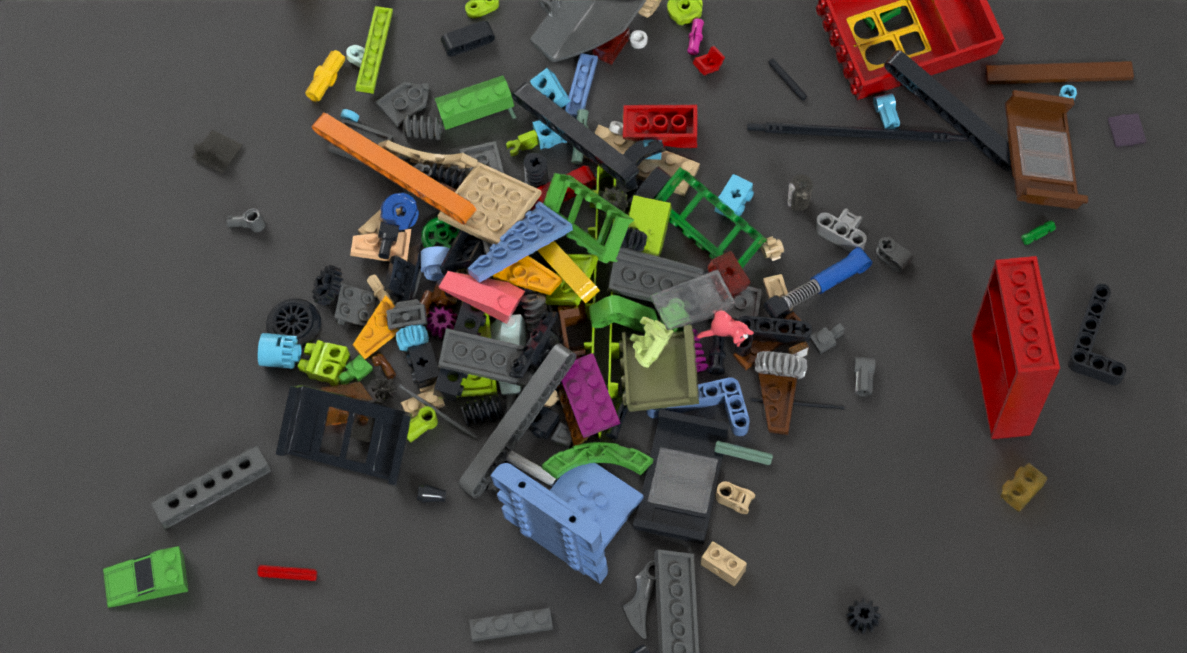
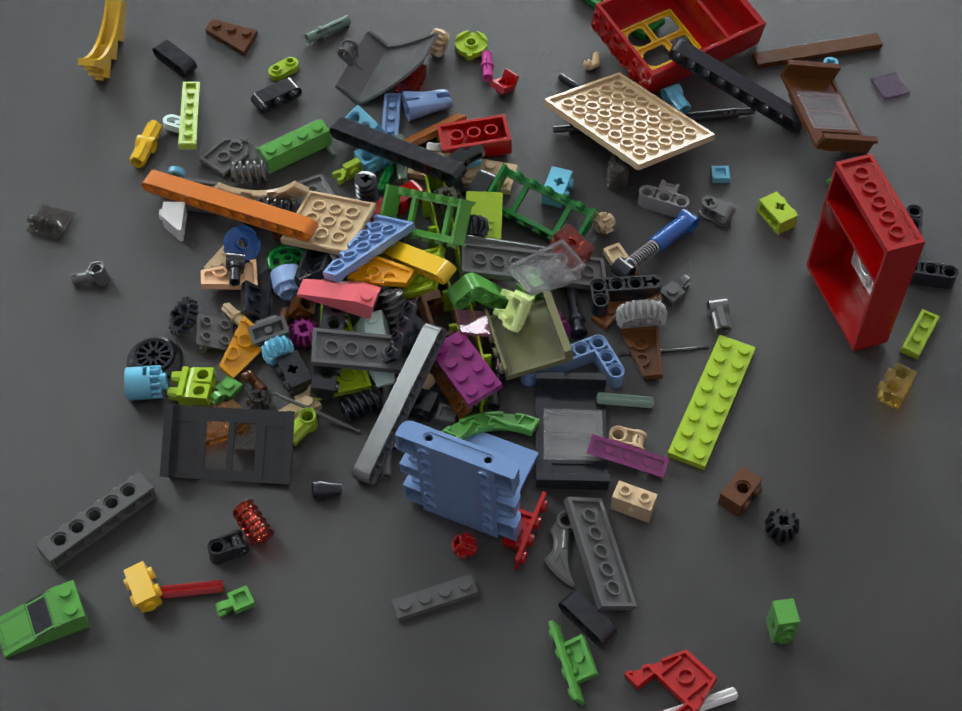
camera: 15 degrees left, 10 degrees down
(241, 562) = (144, 590): none -> yellow brick
(327, 593) = (238, 600): none -> bright green plate
(328, 536) = (229, 547): none -> black piece
(339, 169) = (174, 218): none -> white slope
(353, 517) = (252, 522): none -> clear red piece
(549, 578) = (464, 545): none -> red gear
(560, 157) = (385, 178): none -> green axle
(606, 347) = (472, 323): none -> clear pink piece
(616, 110) = (432, 132): none -> dark orange tile
(616, 566) = (529, 523): none -> red bracket
(617, 72) = (420, 104): none -> medium blue piece
(638, 39) = (434, 75): white tile -> none
(725, 326) = (581, 289): coral animal -> none
(729, 514) = (627, 455): none -> magenta plate
(806, 52) = (594, 63): none -> tan arm
(825, 134) = (629, 120): none -> tan plate
(831, 469) = (711, 402): none -> lime plate
(838, 562) = (742, 481): none -> reddish brown brick
(910, 209) = (720, 174): none -> medium azure tile
(957, 267) = (777, 212): none -> lime brick
(1067, 432) = (919, 334): none -> lime tile

